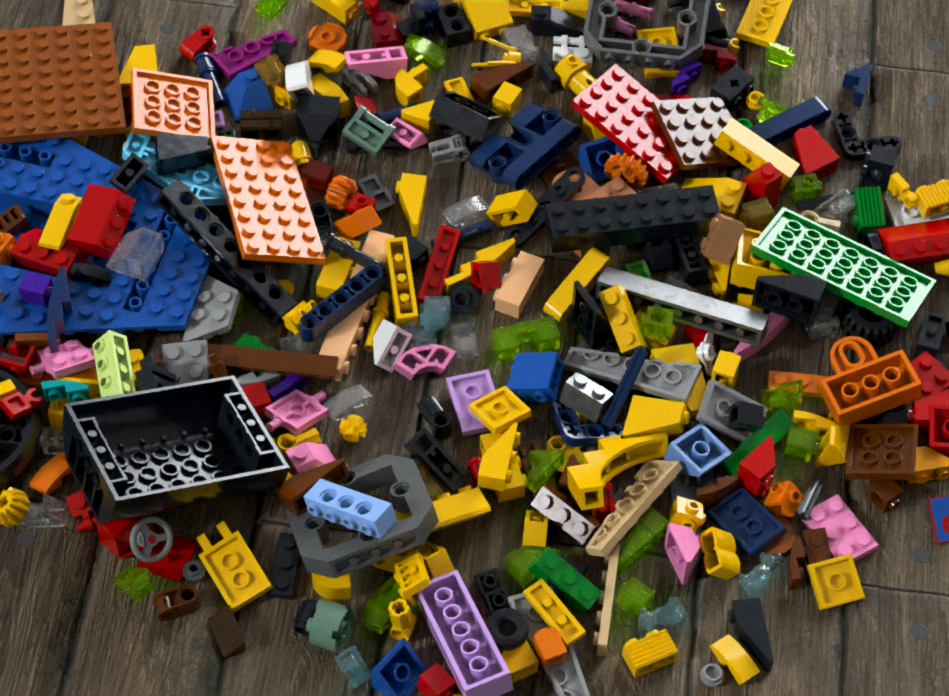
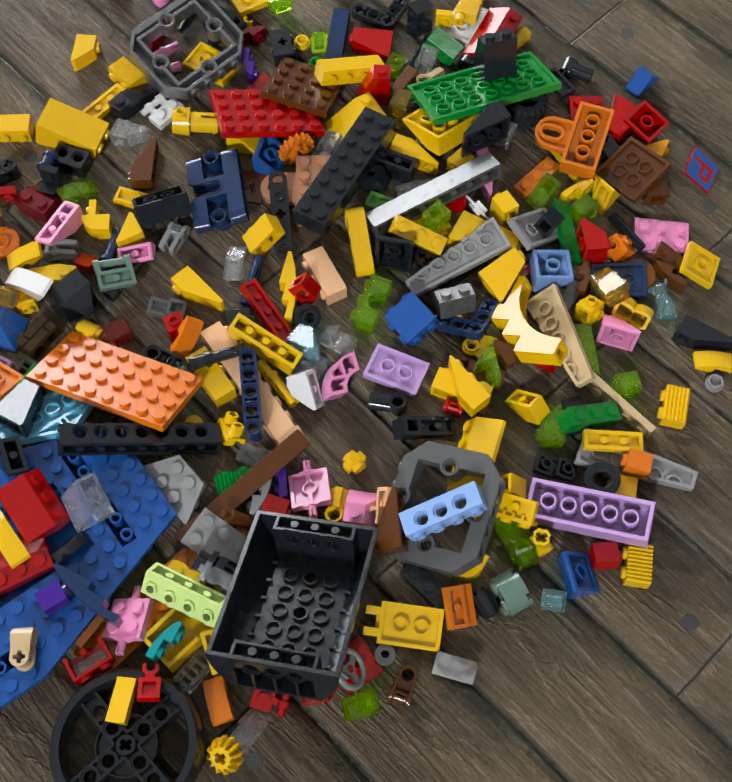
camera: 50 degrees left, 10 degrees up
(284, 595) = (459, 606): none -> orange plate
(340, 192) = (149, 328): orange gear -> none
(344, 402) = (328, 450): clear slope -> none
(499, 410) = (423, 359): yellow plate -> none
(507, 99) = (166, 174): yellow brick -> none
(509, 57) = (135, 148): yellow plant -> none
(546, 68) = (166, 136): black slope -> none
(566, 514) = (535, 379): brick -> none
(624, 387) = (469, 271): dark blue axle -> none
(669, 614) = (654, 375): clear light blue animal -> none
(721, 510) = (610, 286): none -> clear yellow brick
(722, 238) = (409, 132): medium nougat brick -> none
(795, 203) = (406, 78): none -> reddish brown slope
(881, 247) = (496, 55): none -> black slope

